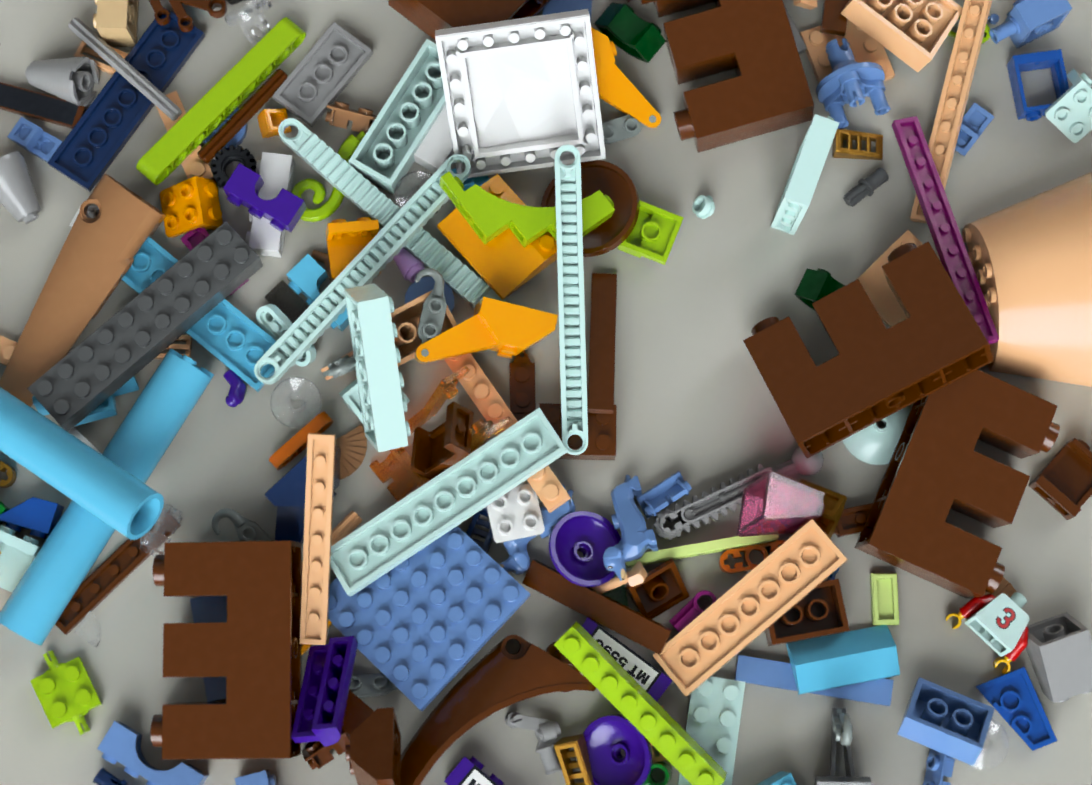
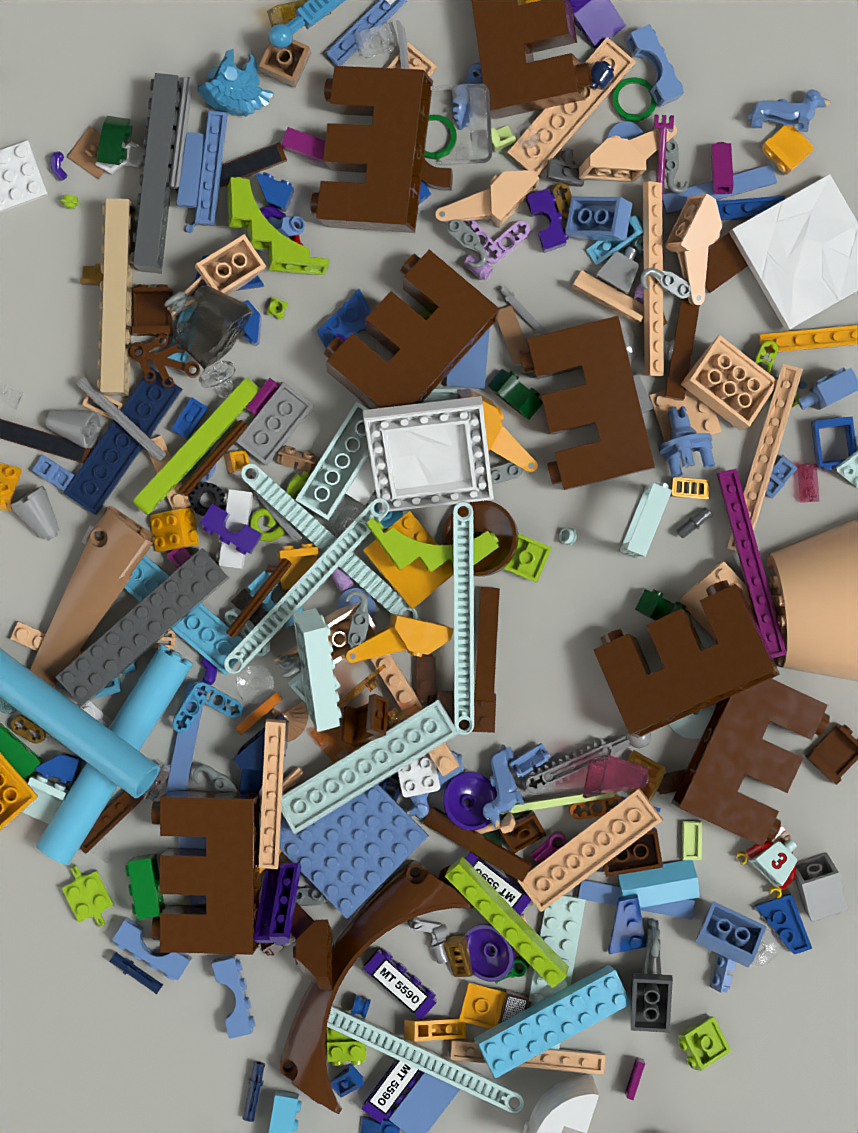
camera: 10 degrees right, 10 degrees up
(143, 672) = (145, 886): none -> green brick
(204, 473) = (184, 747): none -> medium blue tile
(213, 68) = (189, 418): none -> blue plate
(222, 423) = (200, 700): none -> dark azure beam
(300, 286) = (258, 598): none -> reddish brown axle
(306, 40) = (262, 397): none -> magenta tile
(328, 189) = (280, 519): none -> light grey sword
(805, 716) = (628, 926): none -> blue wing
(1009, 135) = (808, 482): none -> clear pink hinge

